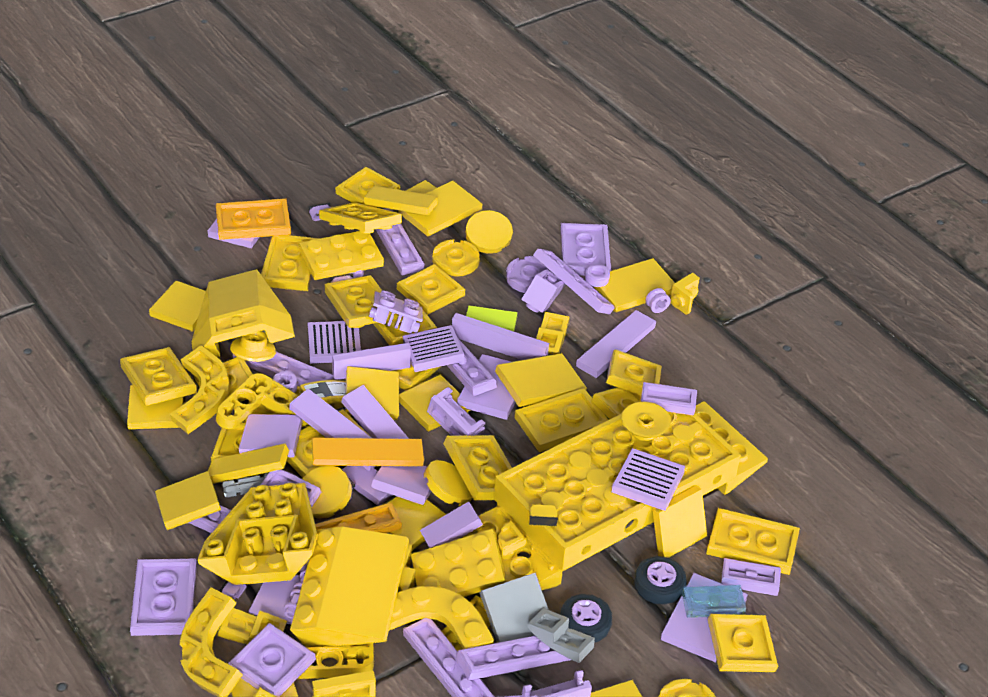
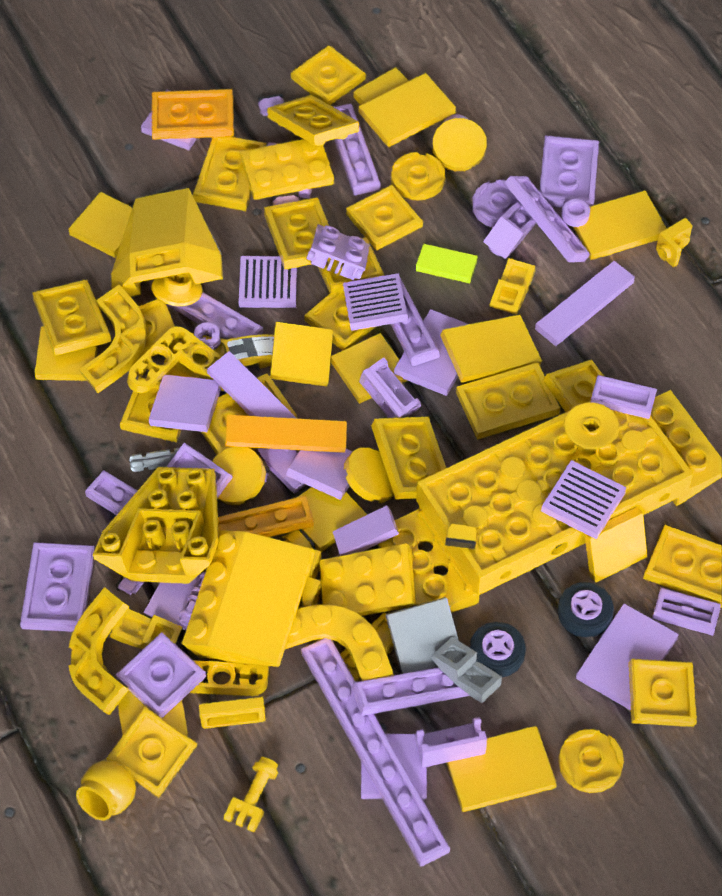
camera: 10 degrees right, 15 degrees up
(187, 500) = (90, 476): yellow tile -> none
(248, 463) = (157, 437): yellow tile -> none
(371, 415) = (299, 387): lavender tile -> none
(382, 358) = (305, 314): lavender tile -> none
(401, 200) = (362, 99): yellow tile -> none
(498, 338) = (451, 291): lavender tile -> none
(510, 539) = (426, 553): yellow tile -> none
(631, 372) = (597, 348): yellow tile -> none
(657, 300) = (641, 249): lavender bush -> none
(713, 600) = (639, 641): clear light blue plate -> none

